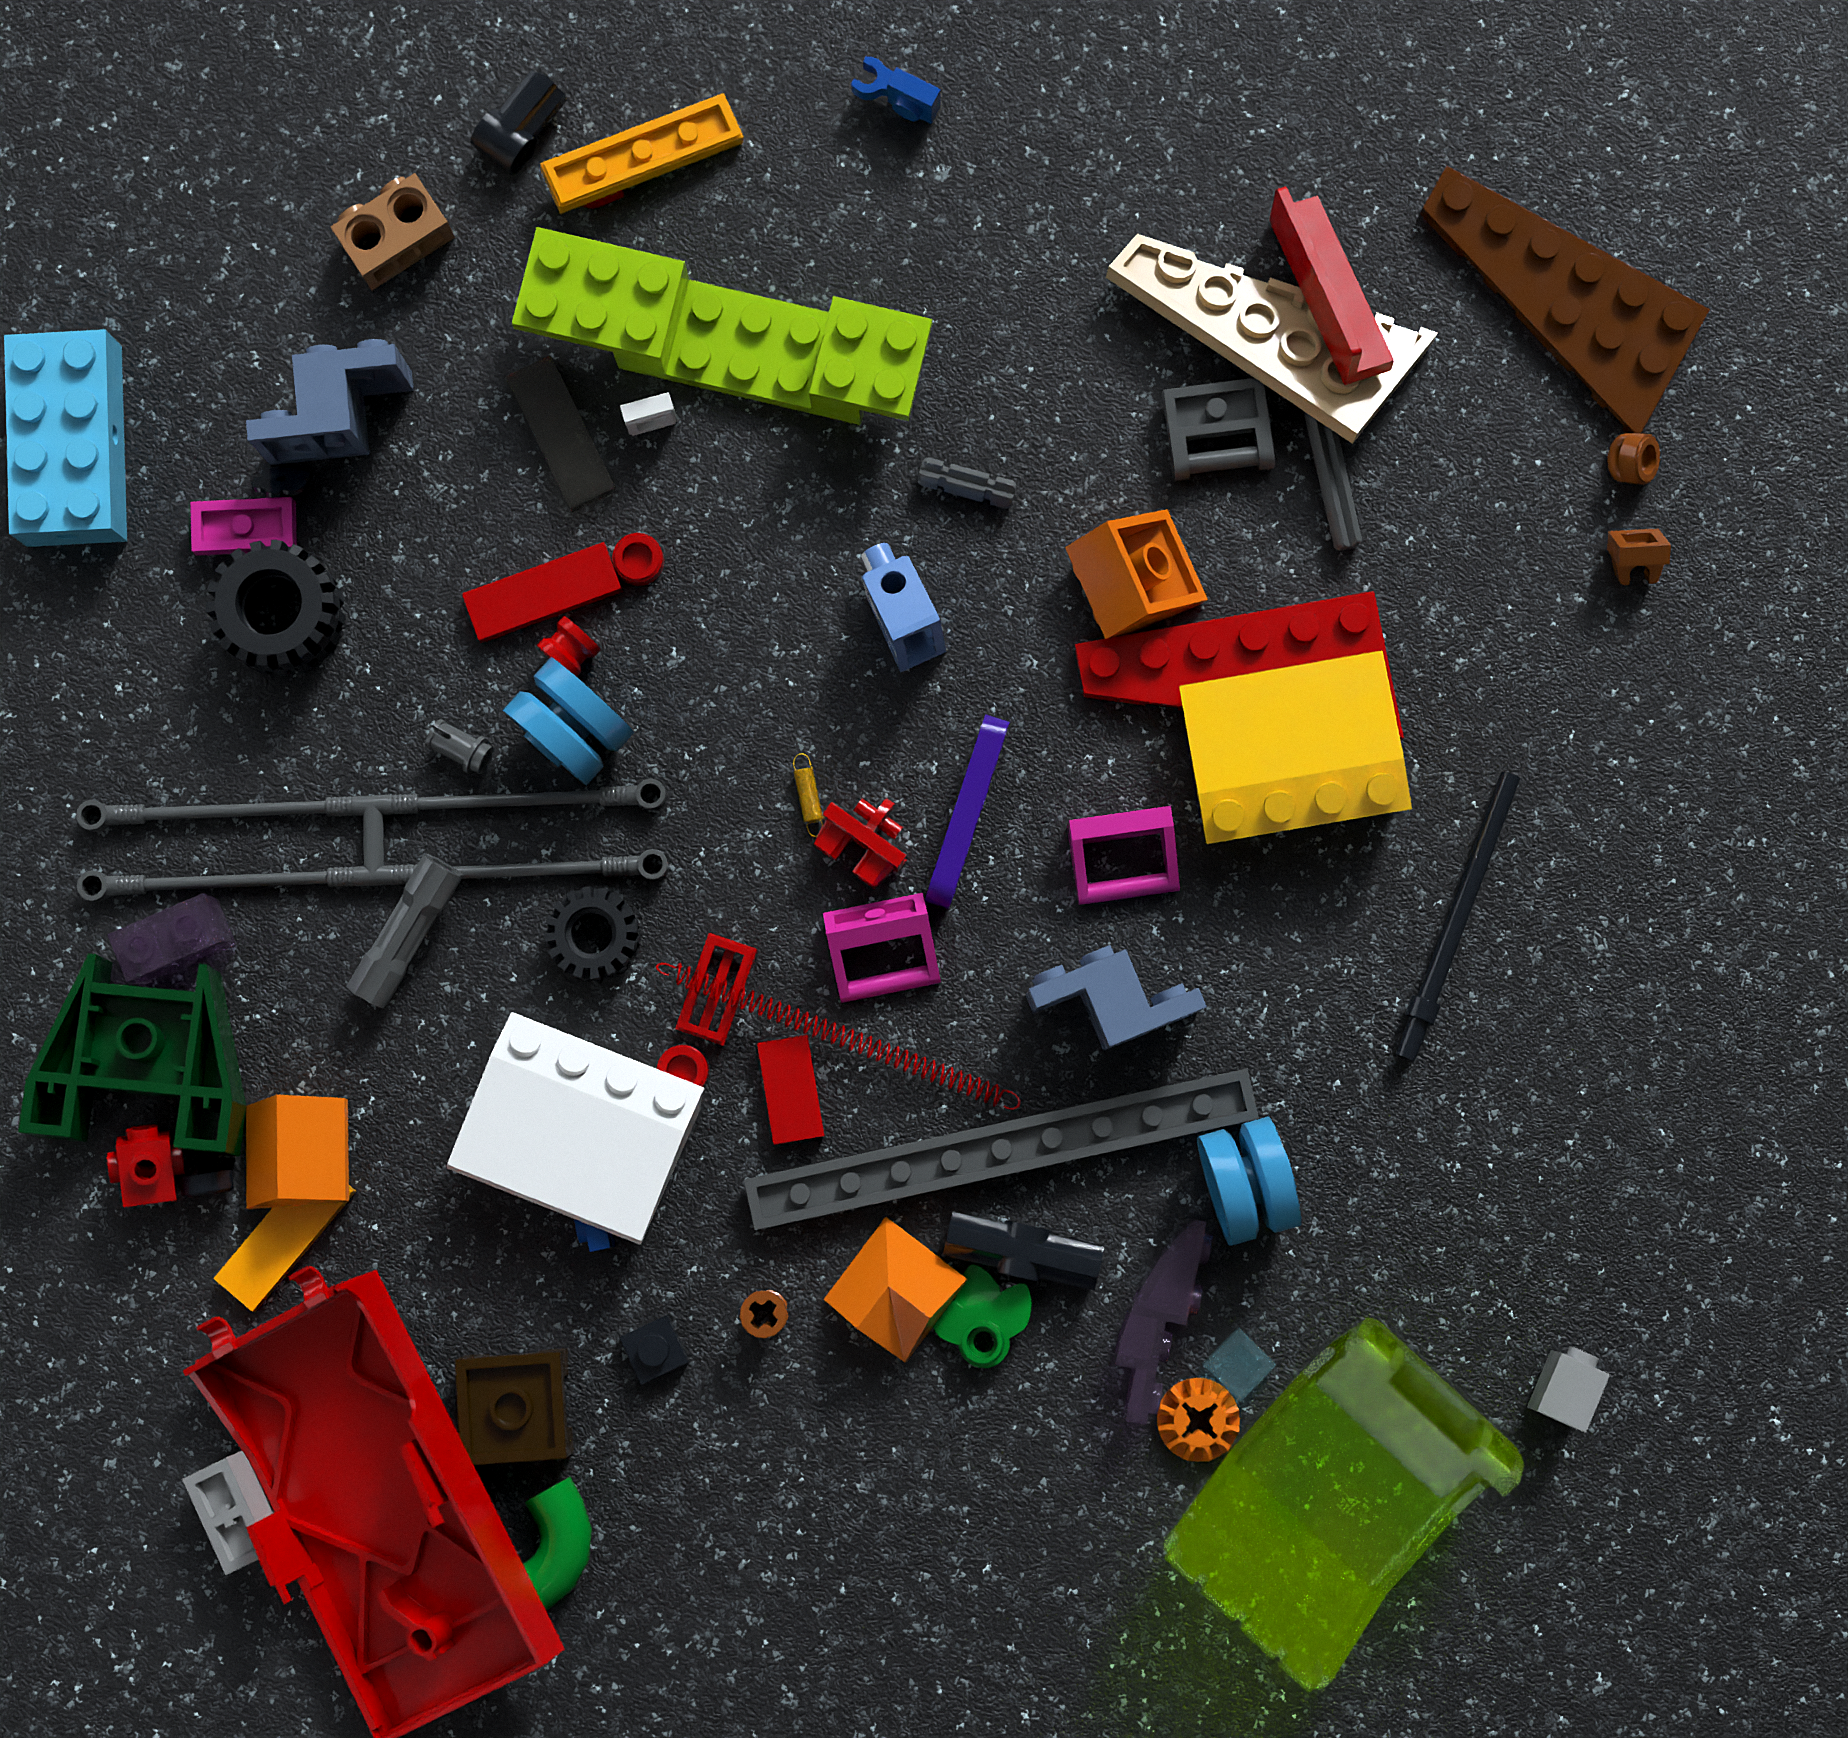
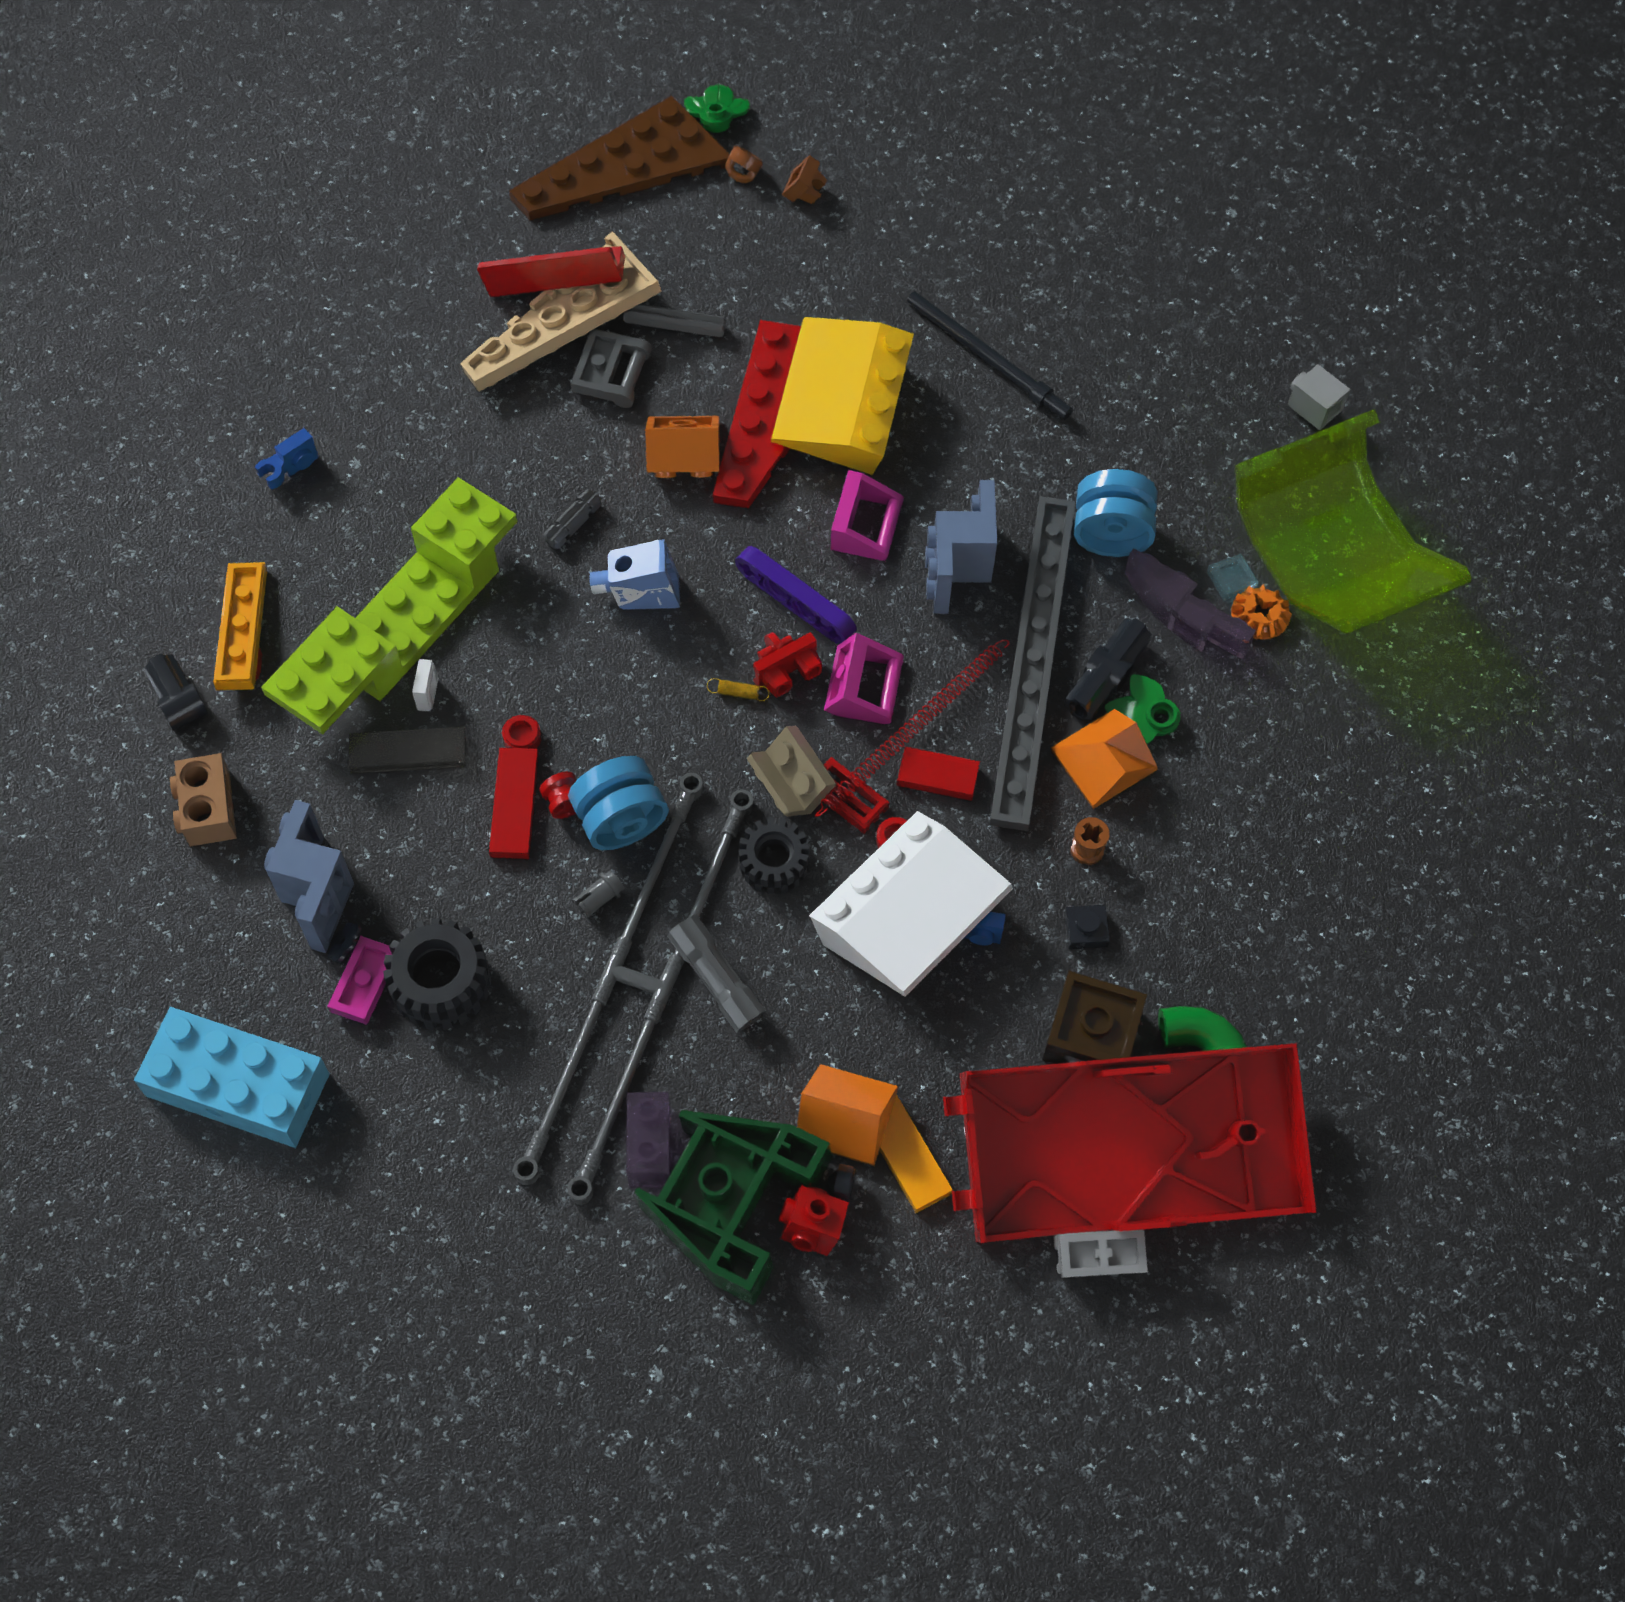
camera: 70 degrees left, 20 degrees down
(705, 909) = (792, 773): none -> dark tan bracket
(1724, 374) = (716, 107): none -> green plate

